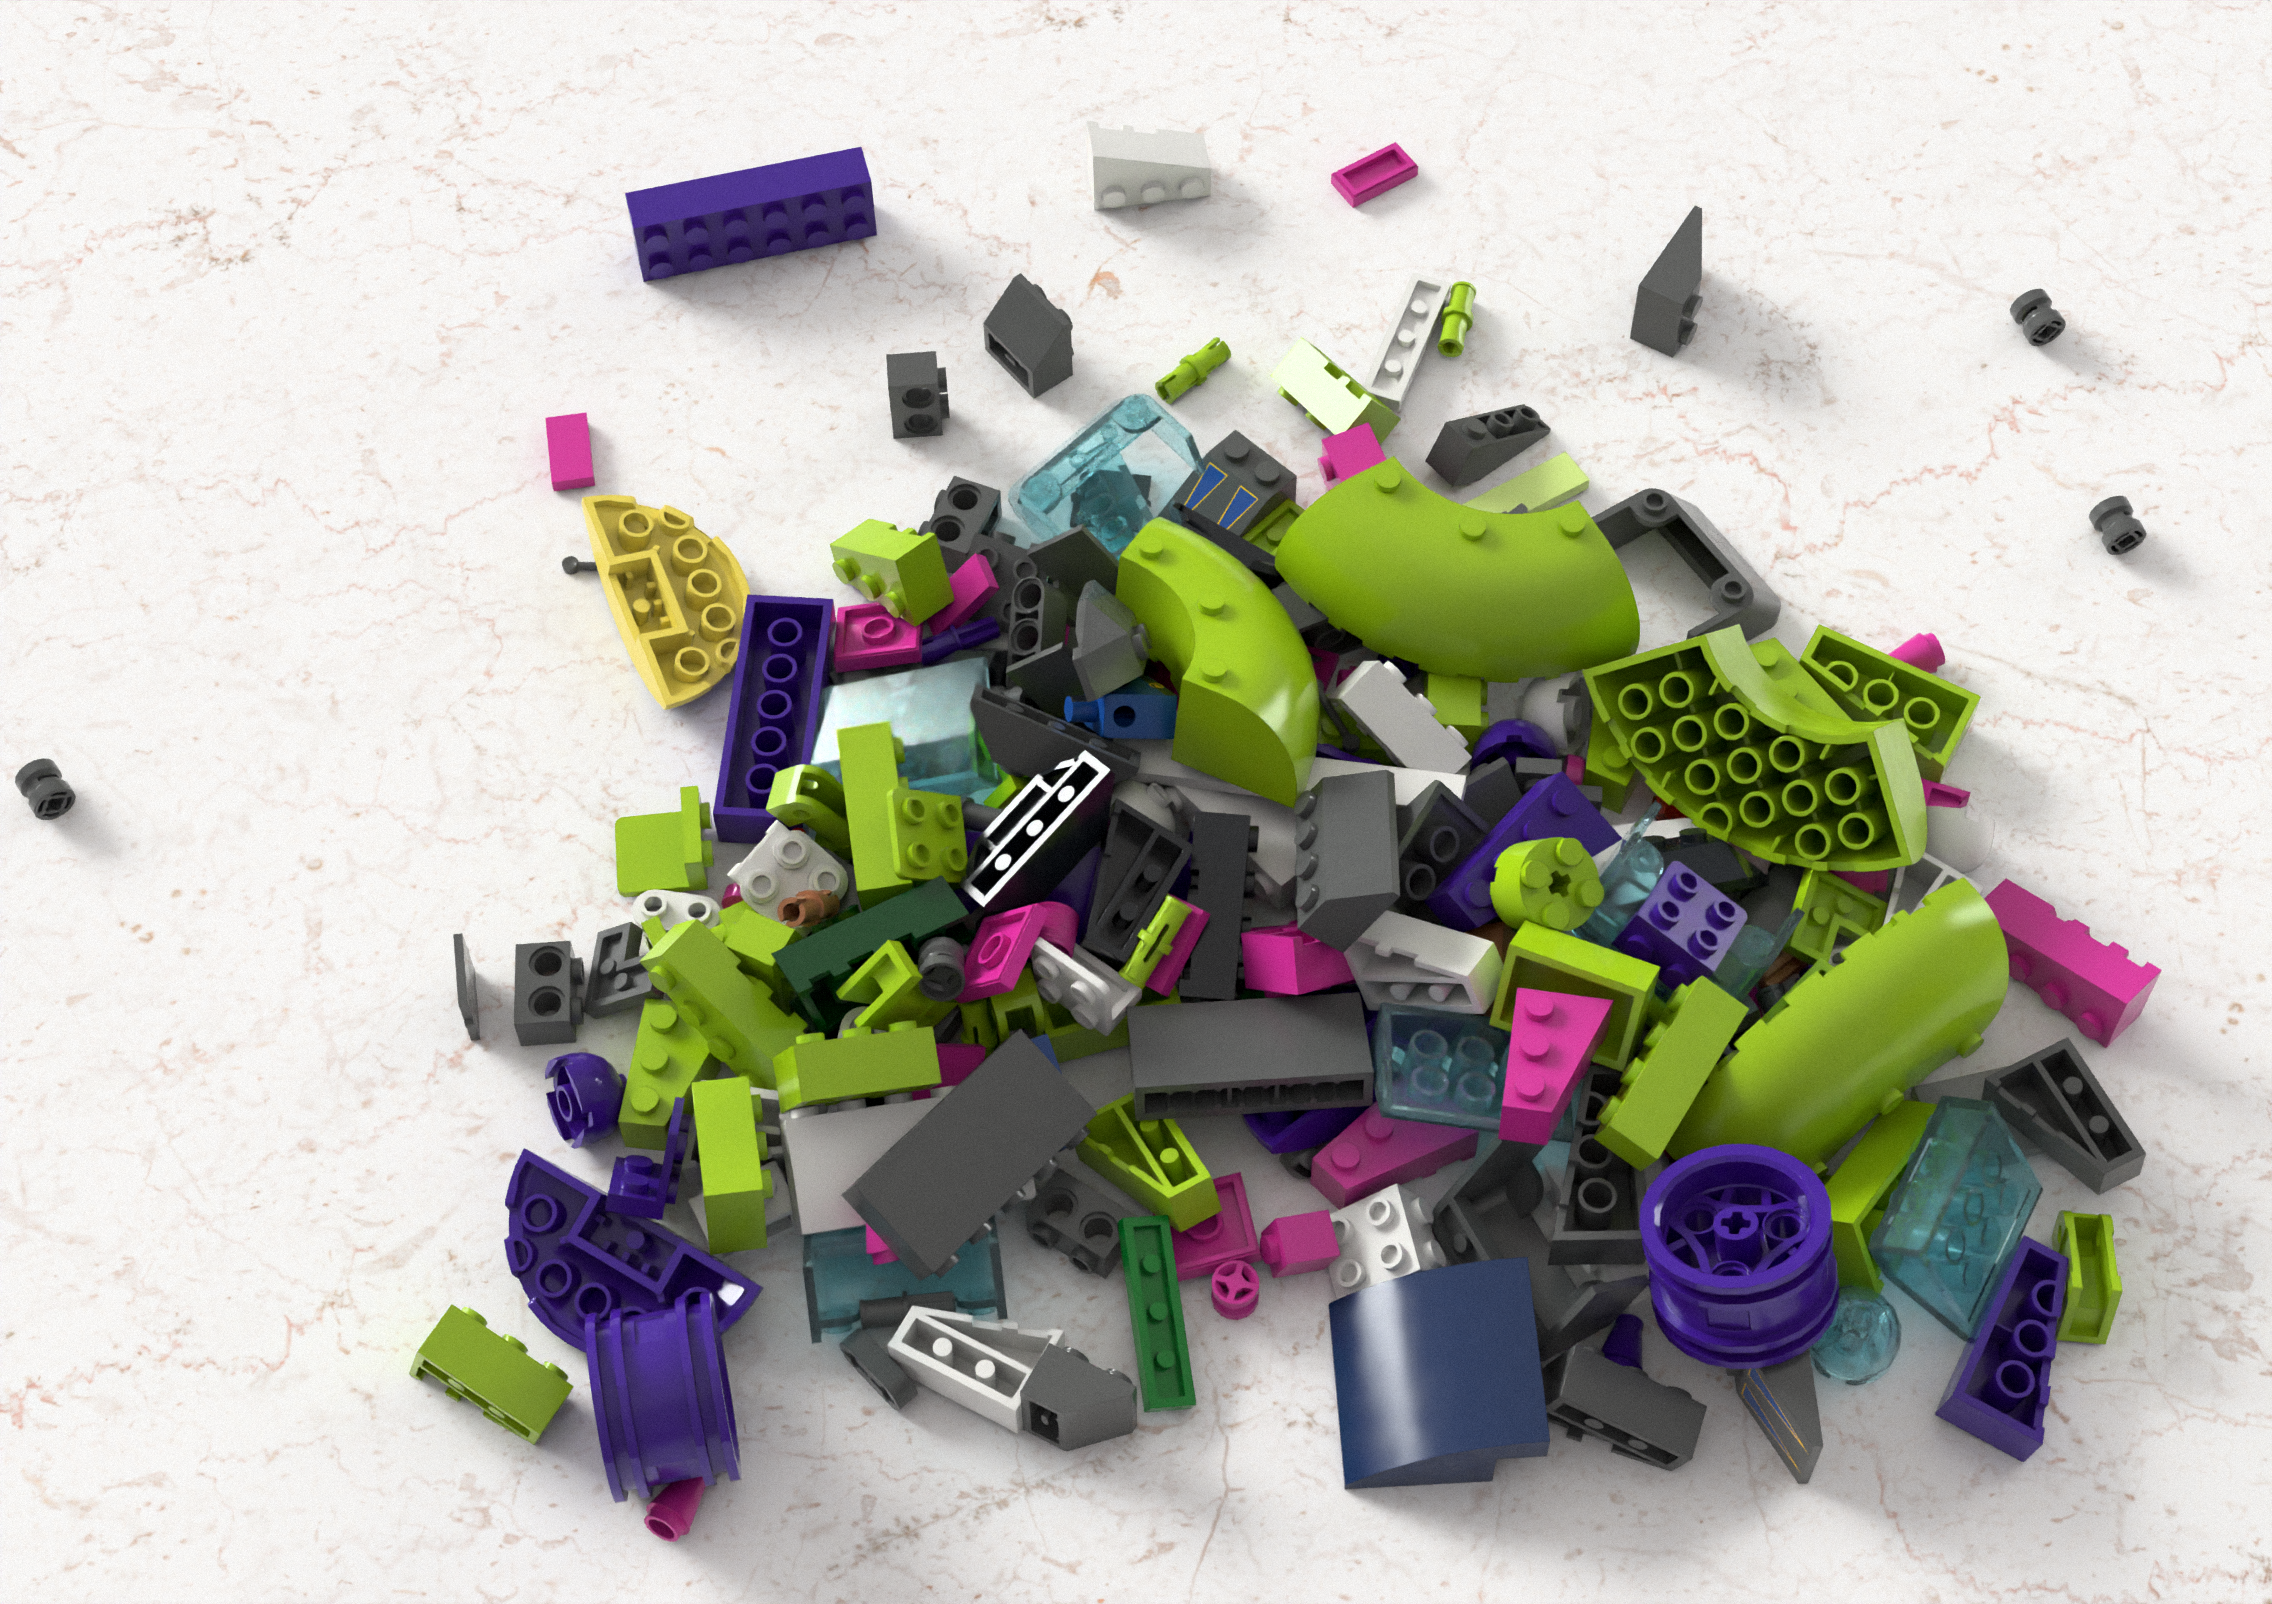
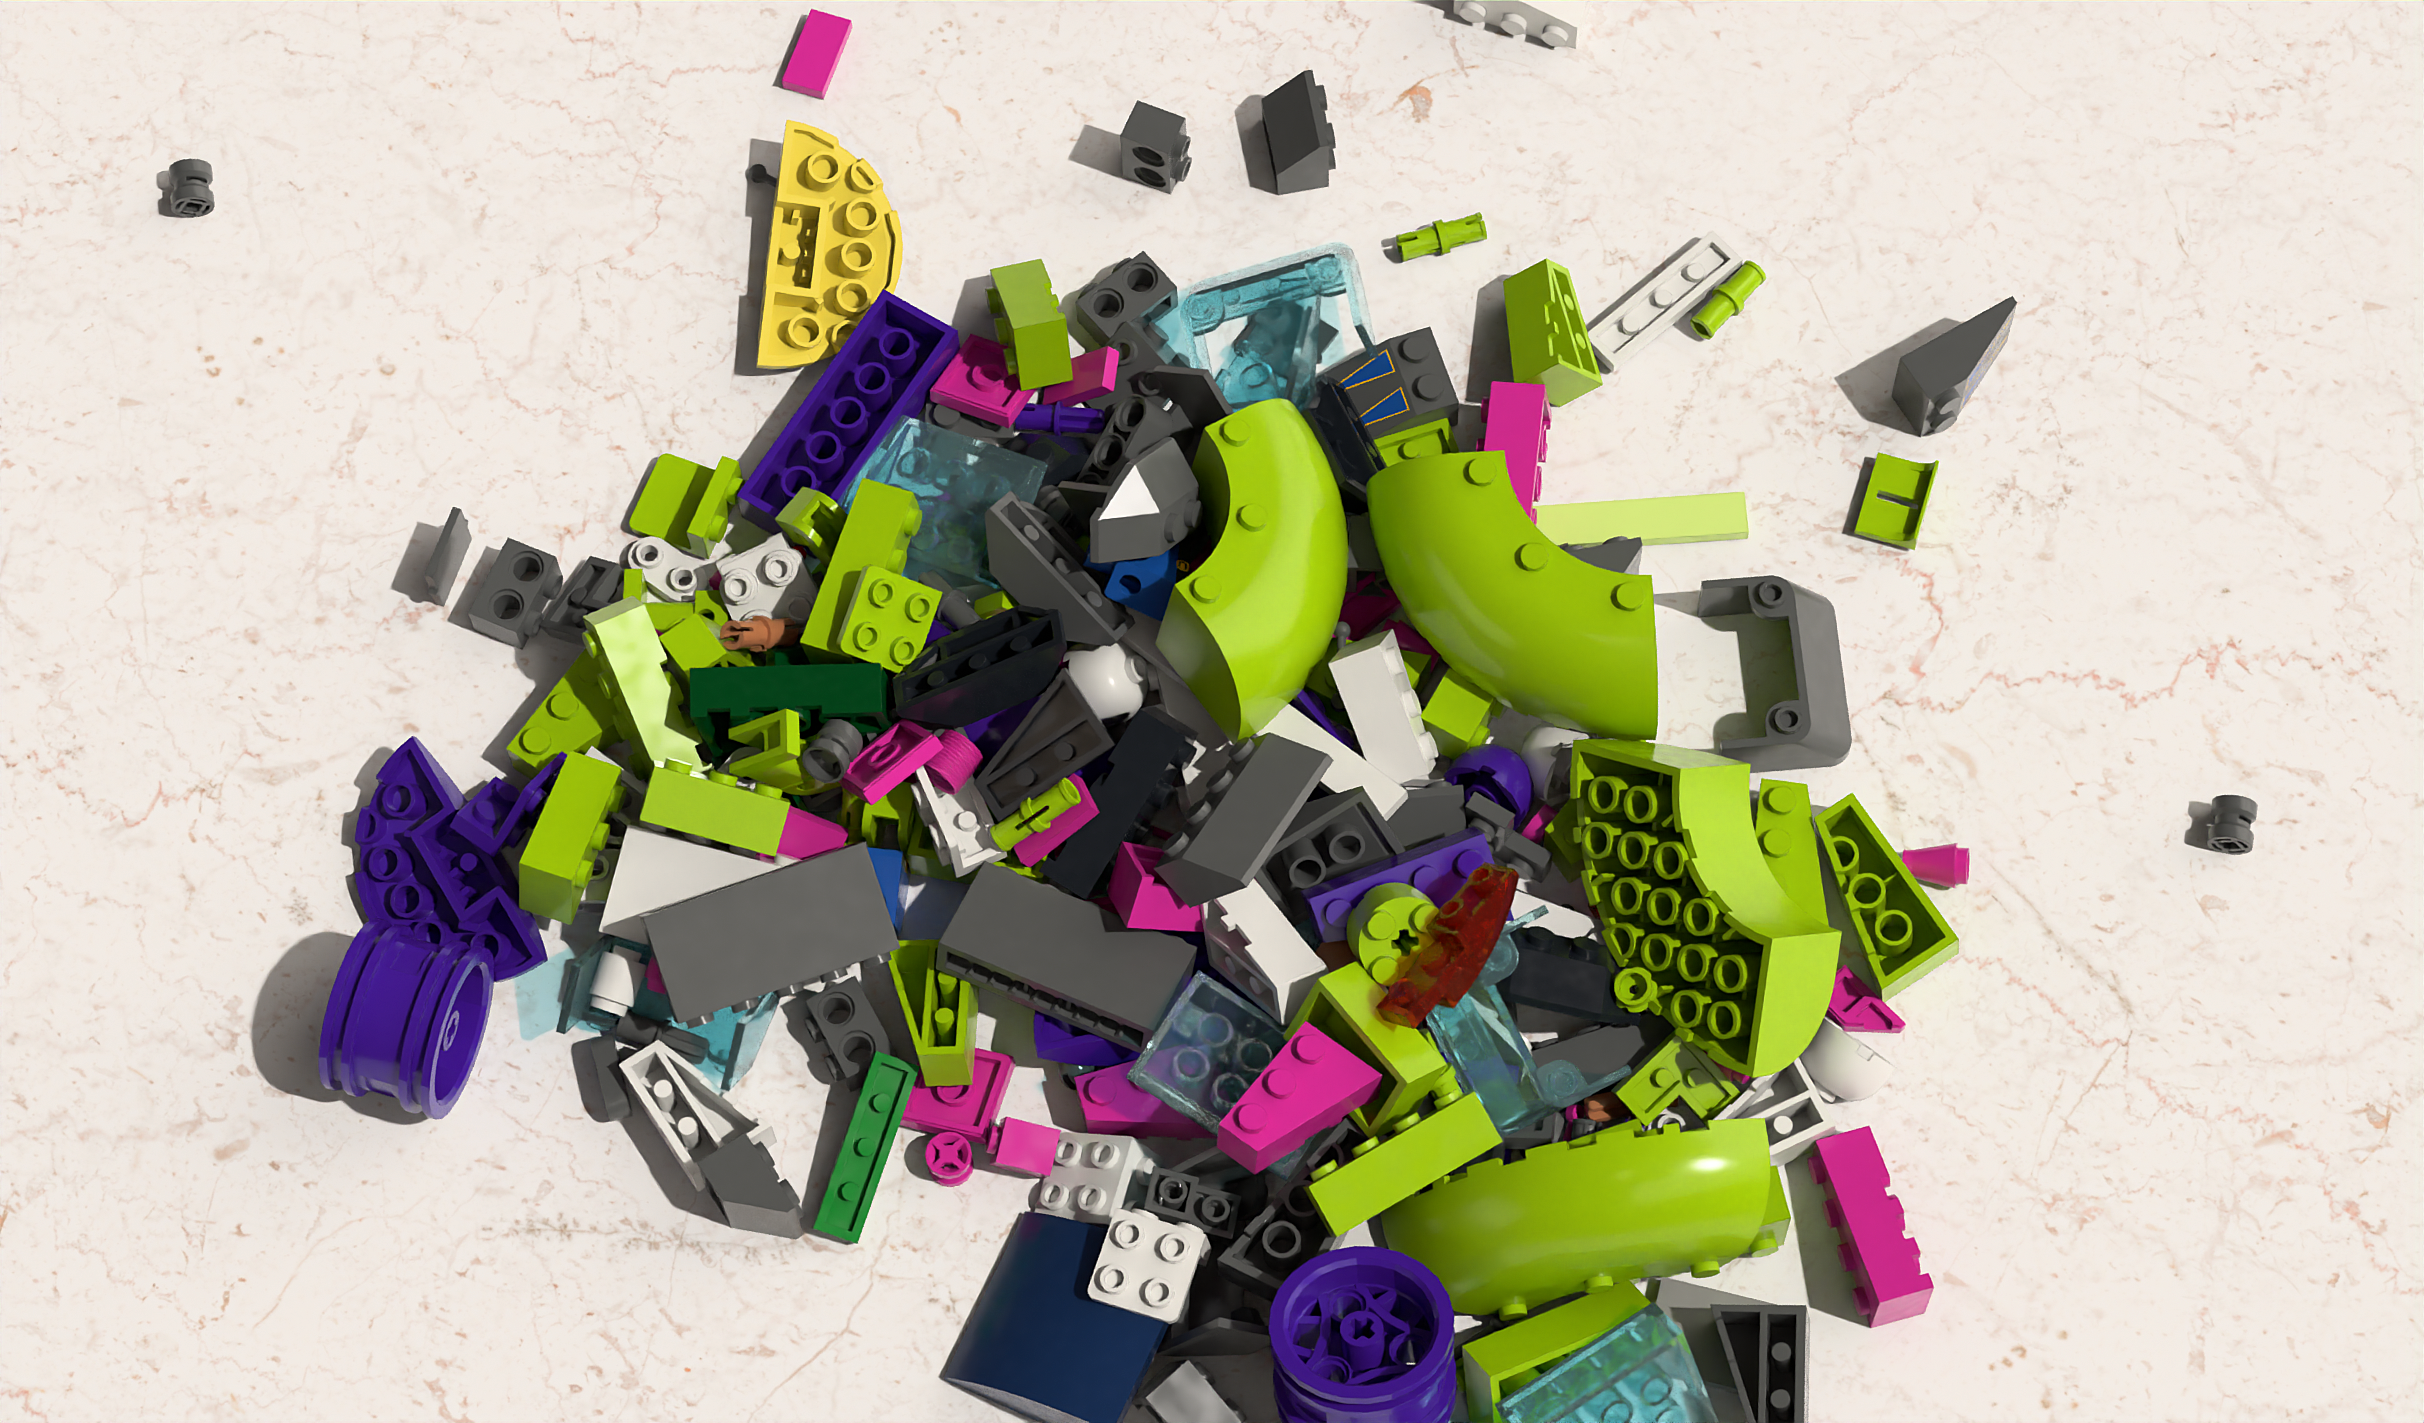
camera: 30 degrees right, 10 degrees up
(492, 1373) = (292, 921): lime wedge -> none
(585, 1097) = (496, 709): dark purple cylinder -> none
(674, 1509) = (378, 1116): dark pink cone -> none
(842, 1273) = (617, 980): none -> white brick
(1374, 174) = (1748, 100): dark pink tile -> none
(1483, 442) = (1672, 446): dark grey slope -> none
(1486, 1219) = (1179, 1198): none -> dark grey slope
(1489, 1279) = (1148, 1264): none -> white bracket
(1615, 863) = (1463, 941): none -> clear red slope
(1625, 1341) = (1247, 1381): dark purple cone -> none
(1682, 927) = (1500, 1034): dark purple bracket -> none
(1690, 390) = (1902, 481): none -> lime piece
(1760, 838) = (1634, 977): none -> lime plate
(2038, 318) = (2306, 566): dark grey wheel -> none

